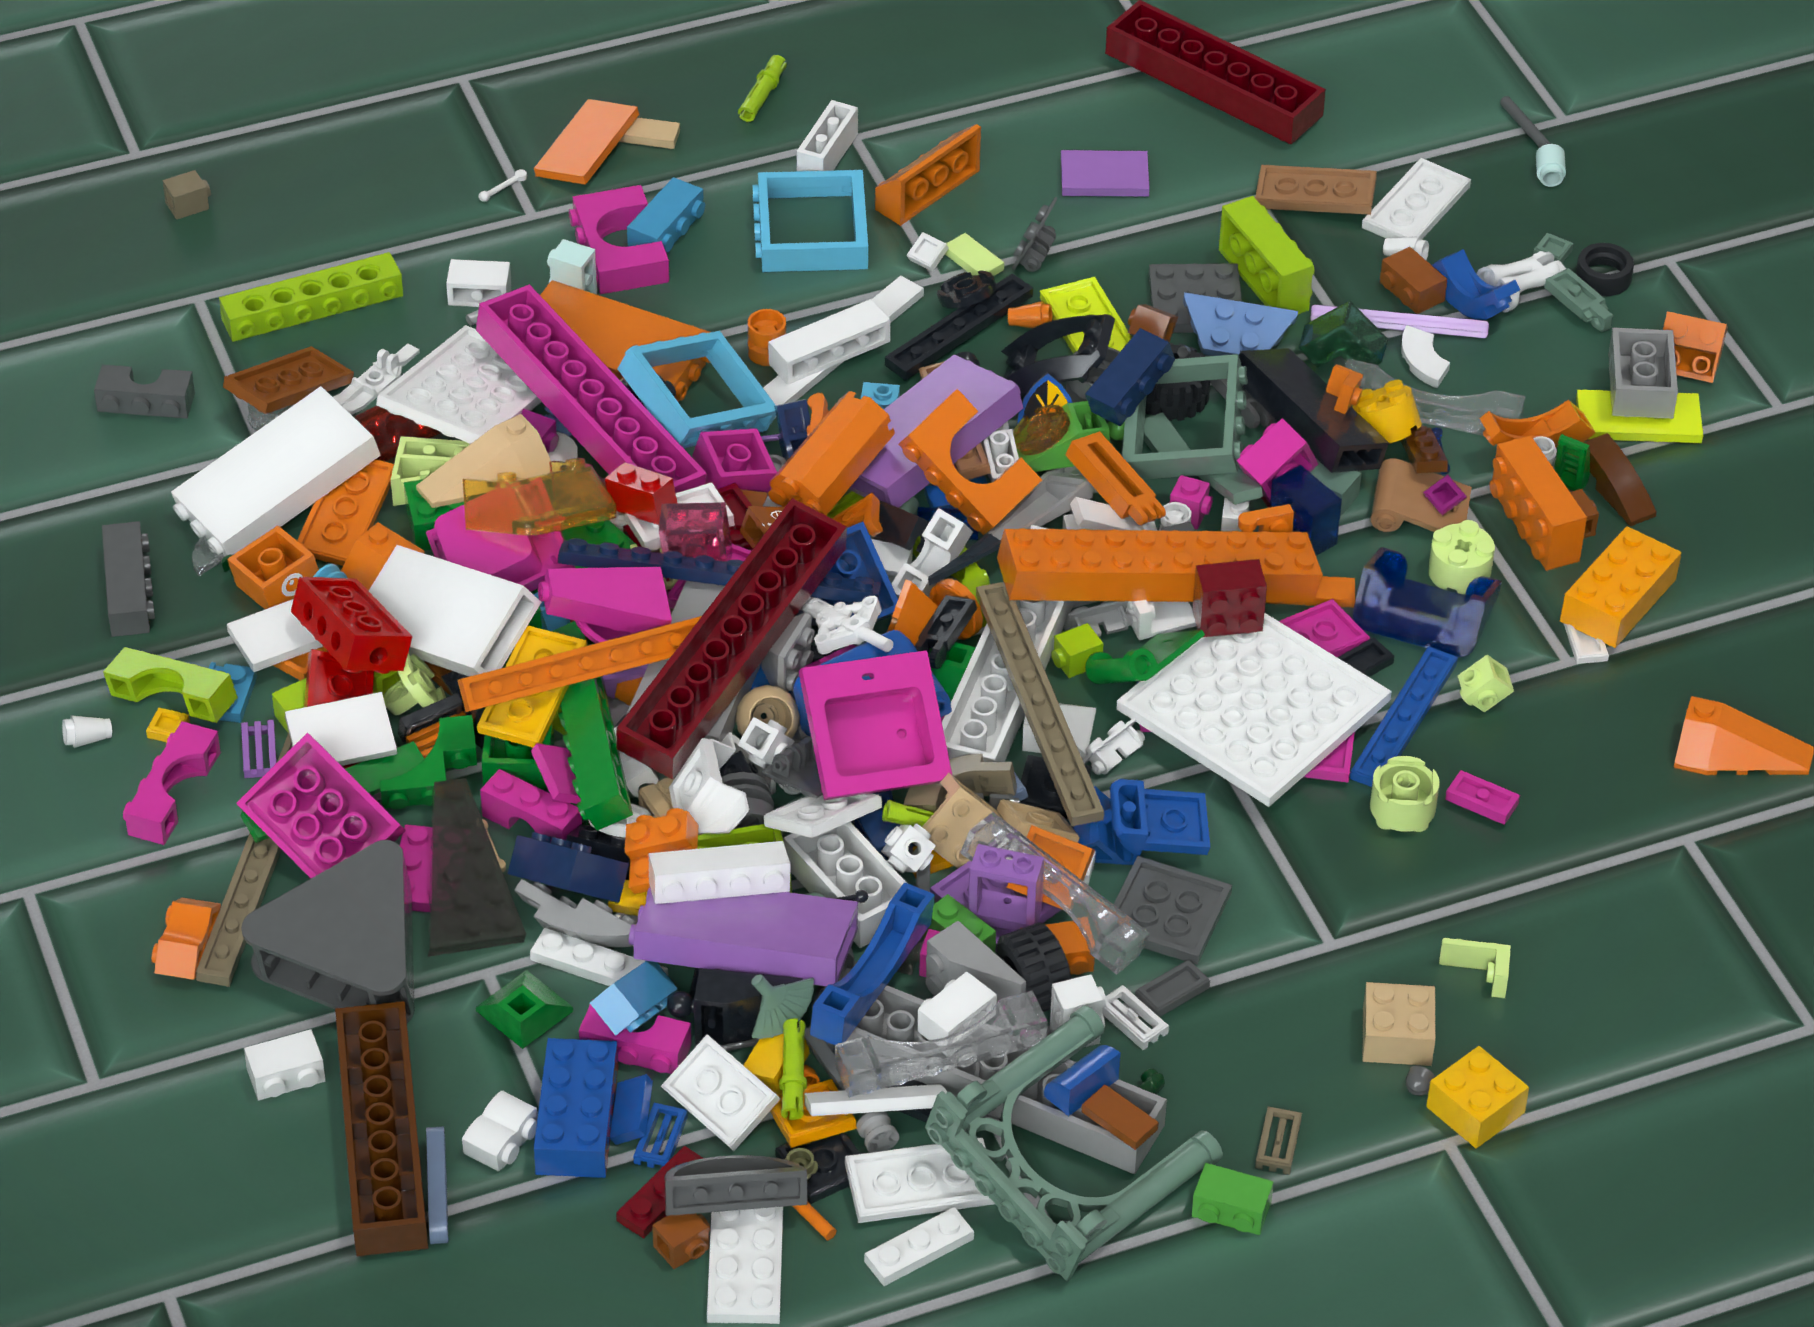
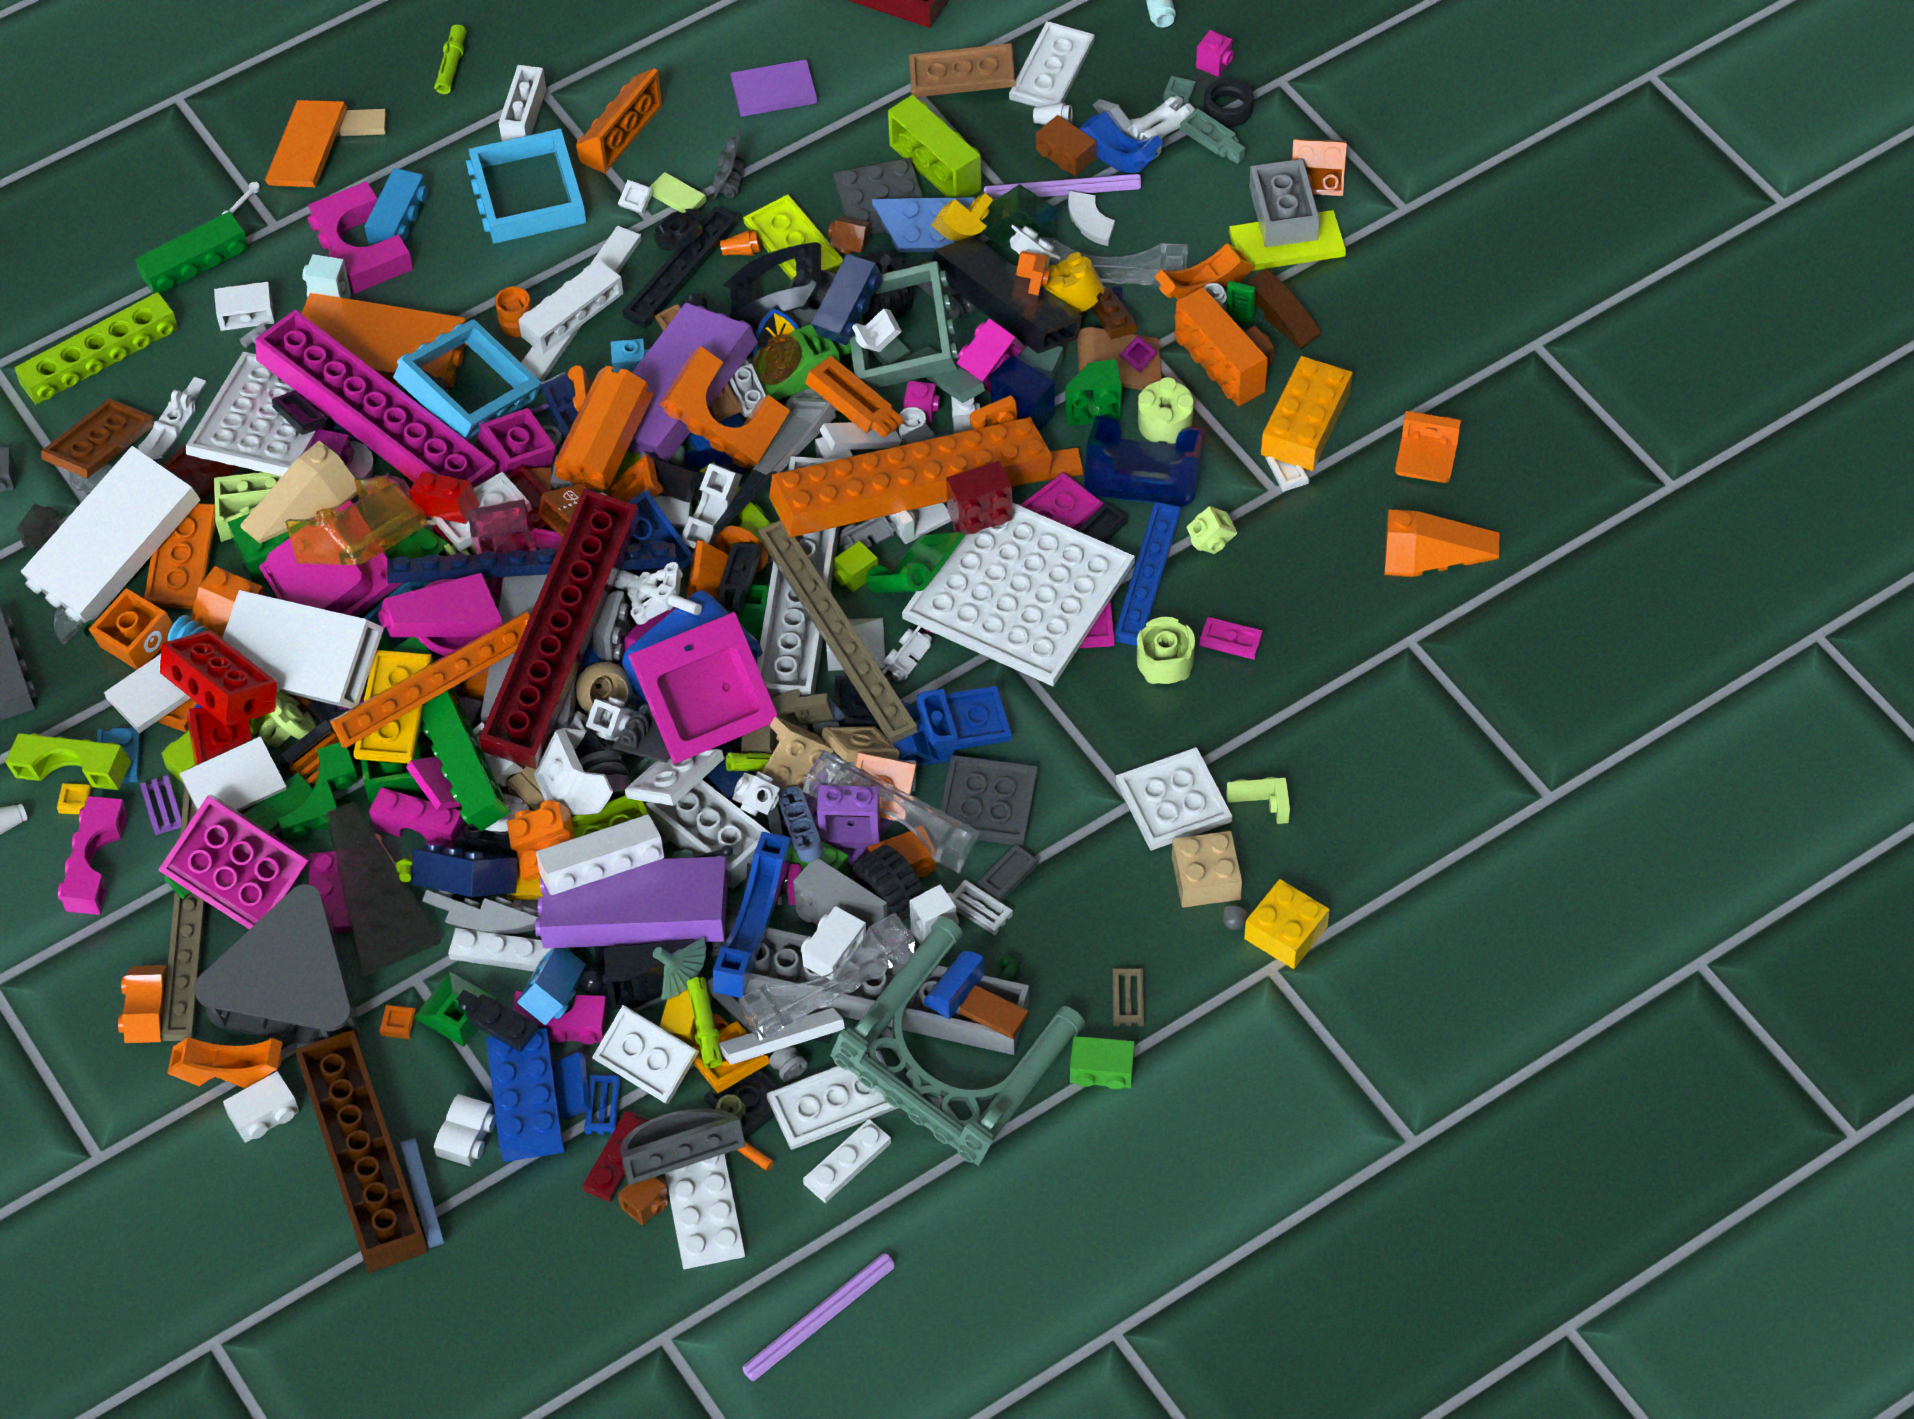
camera: 10 degrees left, 10 degrees up
(200, 453) = (38, 526): none -> clear smoke brick
(232, 1005) = (239, 1065): none -> orange arch
(437, 224) = (191, 253): none -> green brick
(456, 1010) = (398, 1022): none -> orange tile
(503, 855) = (404, 867): none -> lime bar
(508, 389) = (298, 412): none -> tile
(564, 1020) = (497, 1020): none -> black hinge
(950, 888) = (800, 823): none -> sand blue beam
(1157, 415) = (878, 331): none -> white bracket
(1274, 330) = (960, 223): none -> yellow brick
(1347, 358) = (1027, 240): none -> white hinge
(1378, 945) = (1173, 798): none -> white plate
(1383, 521) = (1093, 393): none -> green slope
(1474, 253) = (1114, 112): none -> light grey tile
(1599, 218) = (1214, 53): none -> dark pink brick
(1752, 644) = (1427, 447): none -> orange bracket

